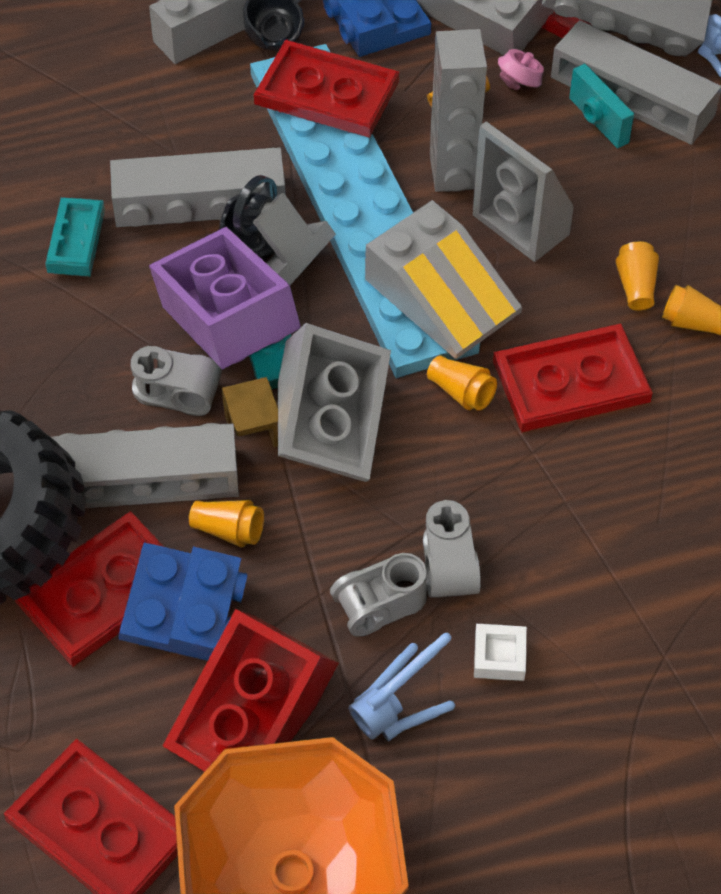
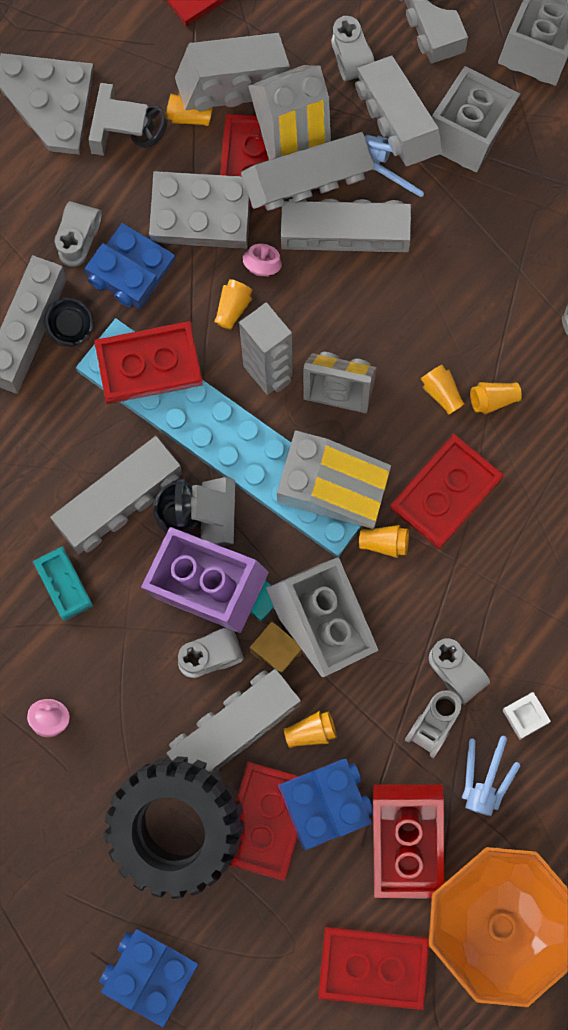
camera: 30 degrees left, 20 degrees up
(601, 106) = (336, 262): teal plate -> none

